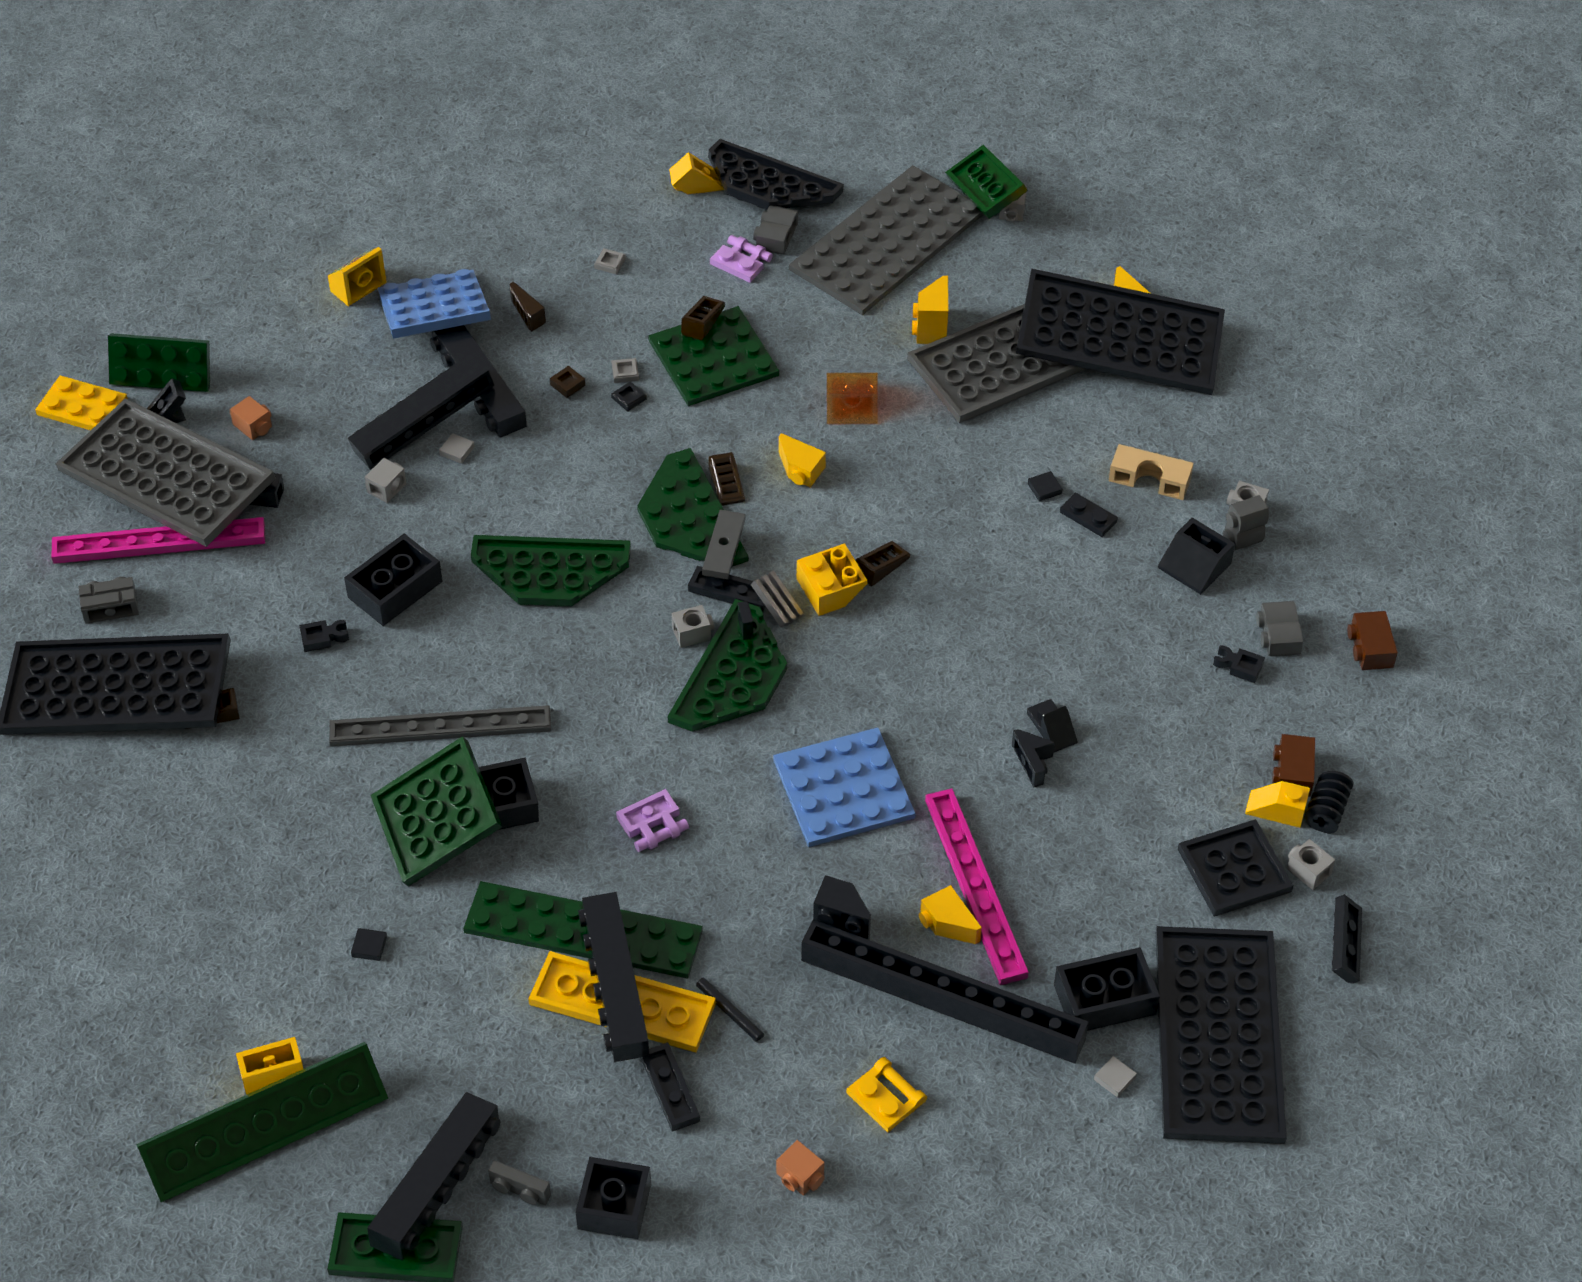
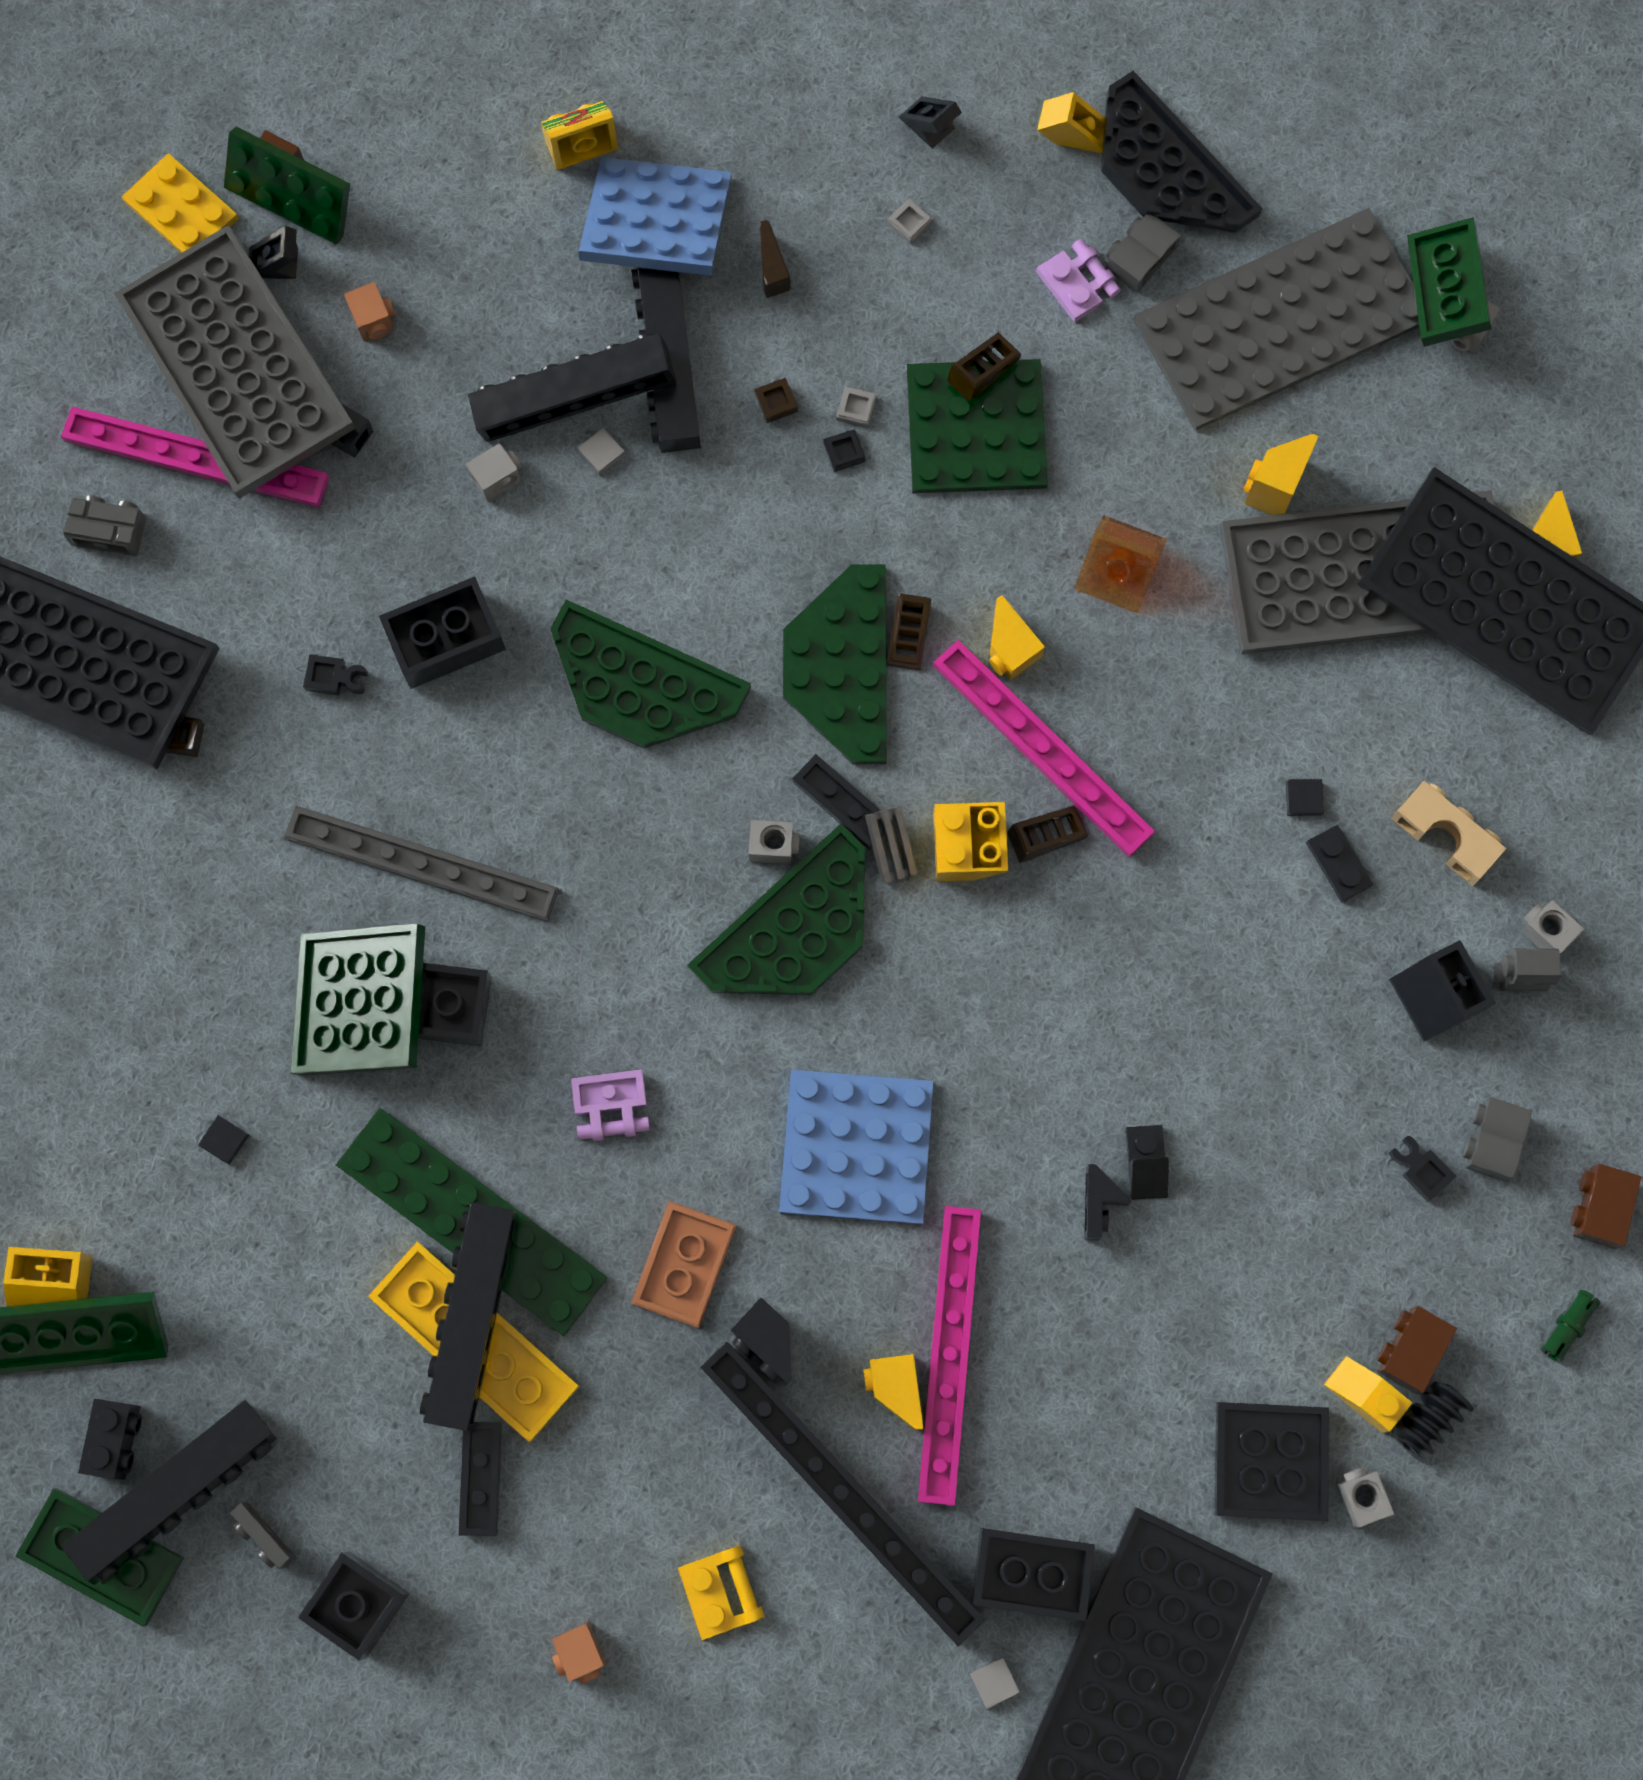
camera: 25 degrees right, 25 degrees up
(369, 1162) = (110, 1439): none -> black brick
(598, 201) = (931, 119): none -> black slope
(723, 544) = (867, 724): dark grey tile -> none
(730, 1010) = (593, 1401): black bar -> none
(745, 620) = (834, 869): black tile -> none
(755, 901) = (684, 1264): none -> nougat tile
(854, 514) = (1043, 748): none -> dark pink plate
(1347, 939) = (1357, 1620): black plate -> none
(1389, 718) = (1570, 1326): none -> dark green pin

